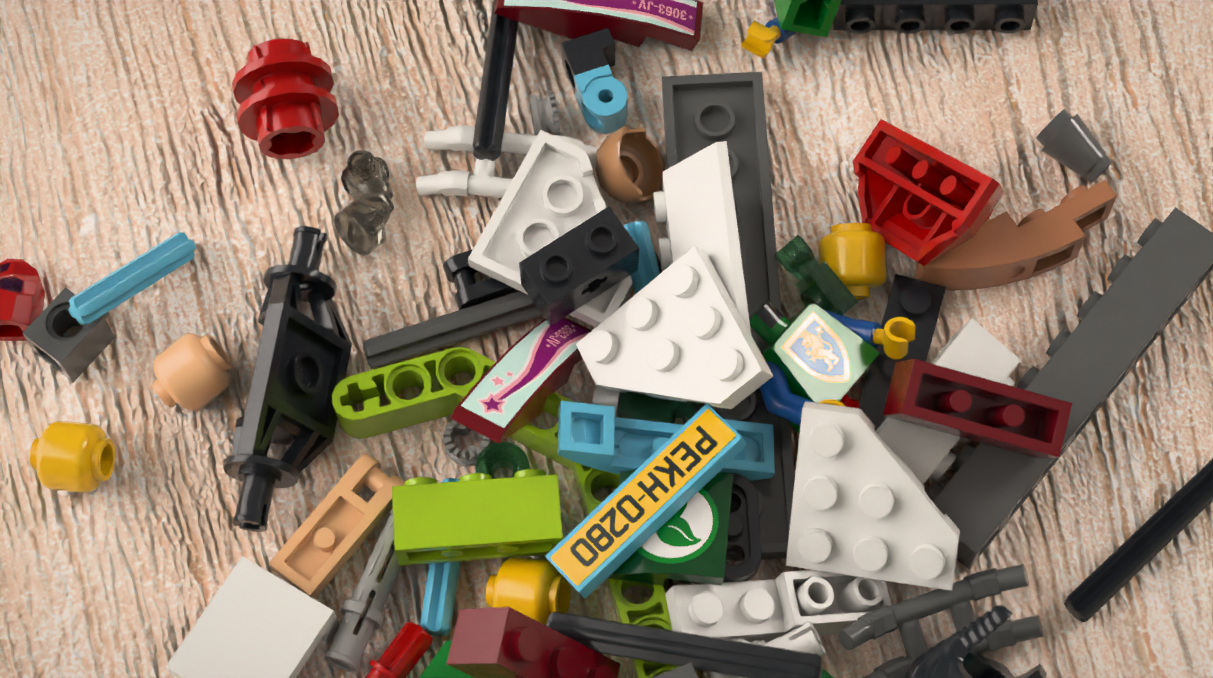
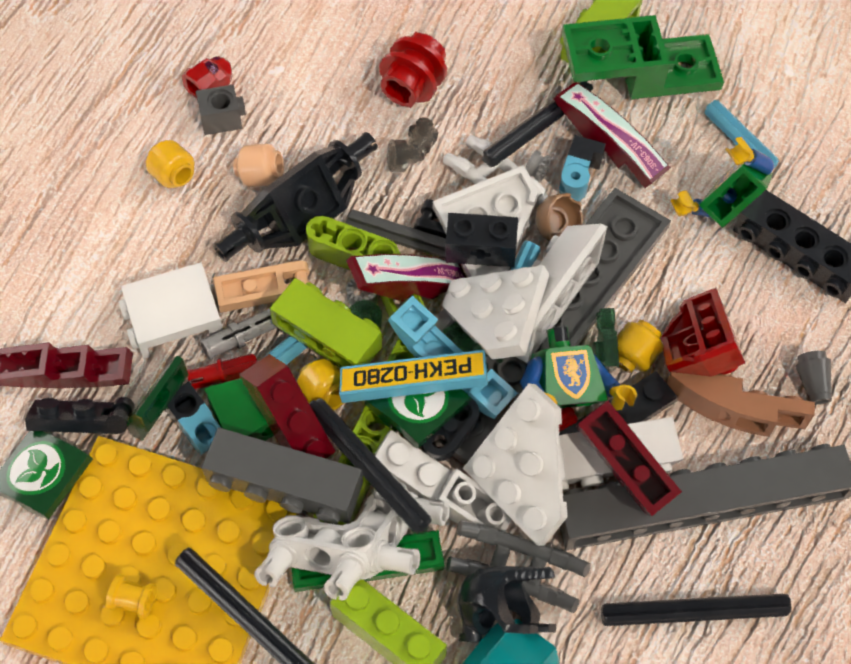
camera: 35 degrees right, 5 degrees down
(131, 278) = (268, 102): medium azure axle -> none

